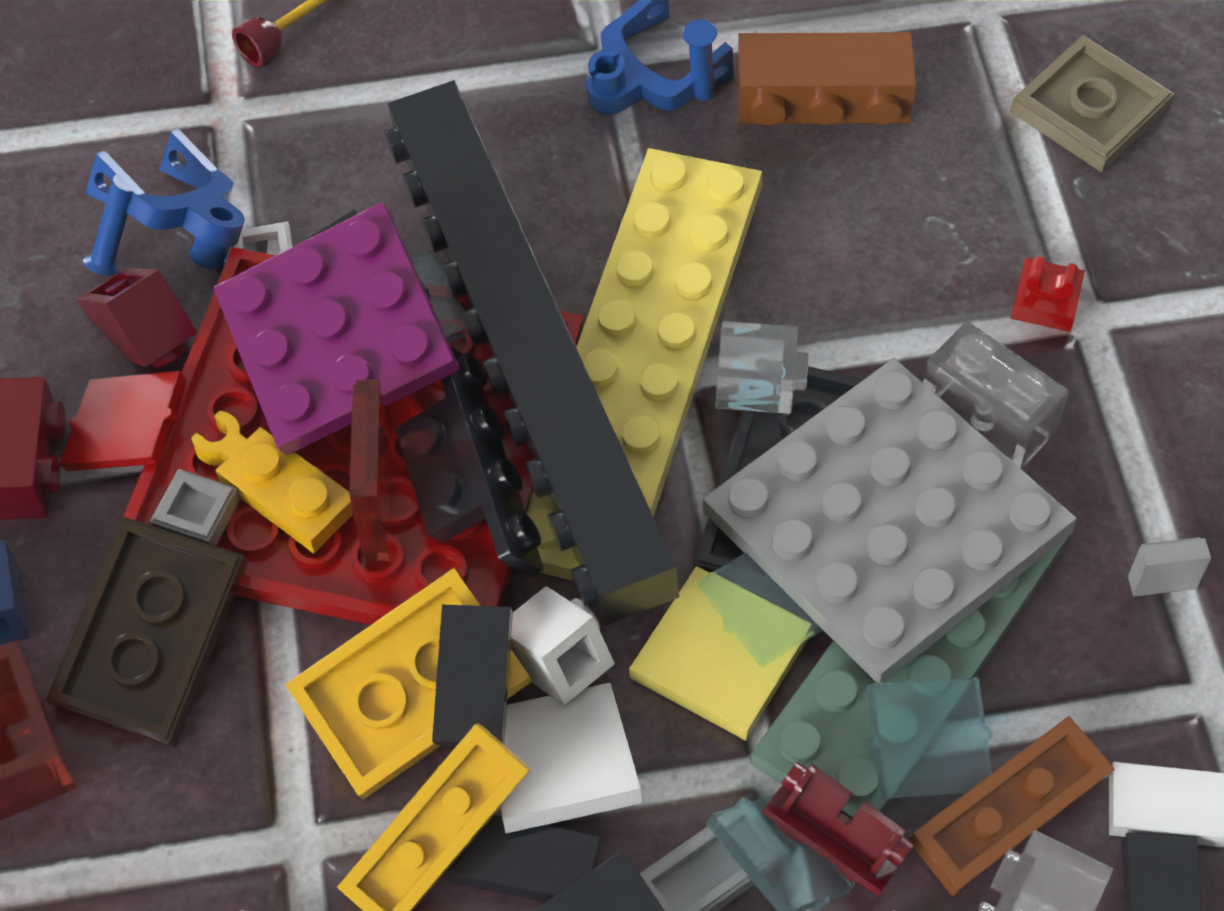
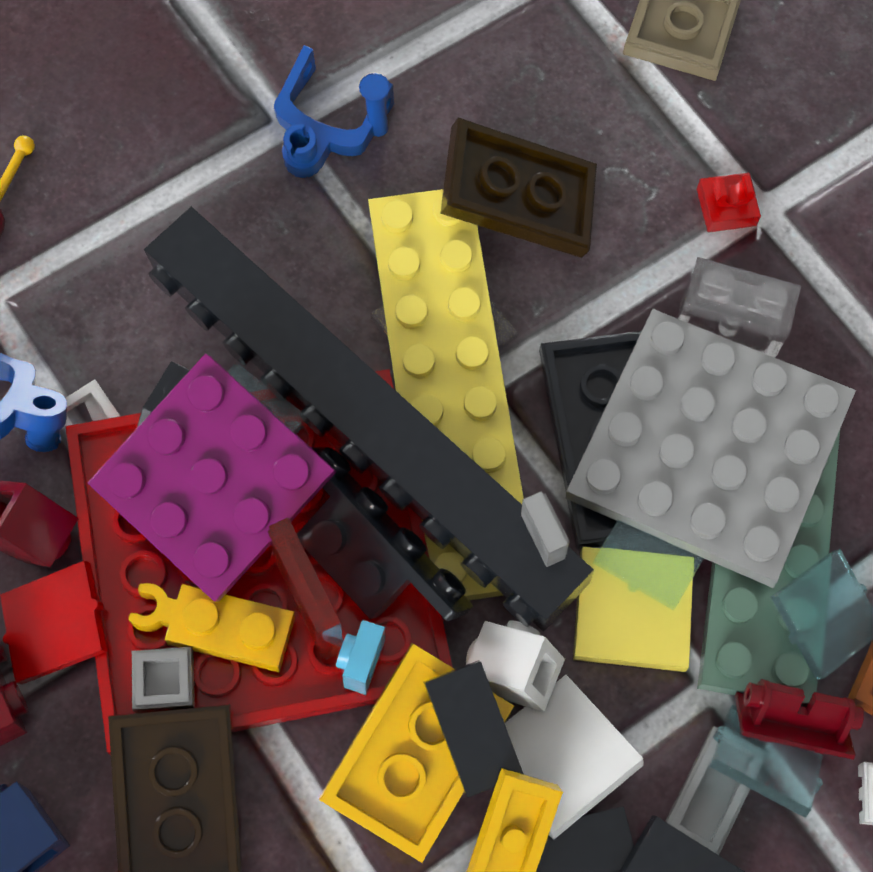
camera: 30 degrees left, 10 degrees up
(399, 564) = (360, 656): none -> medium azure plate
(638, 498) = (545, 528): none -> light grey tile
(759, 367) = (555, 360): clear brick -> none
(814, 193) = (519, 188): none -> dark brown tile
(825, 78) = (474, 81): dark orange brick -> none

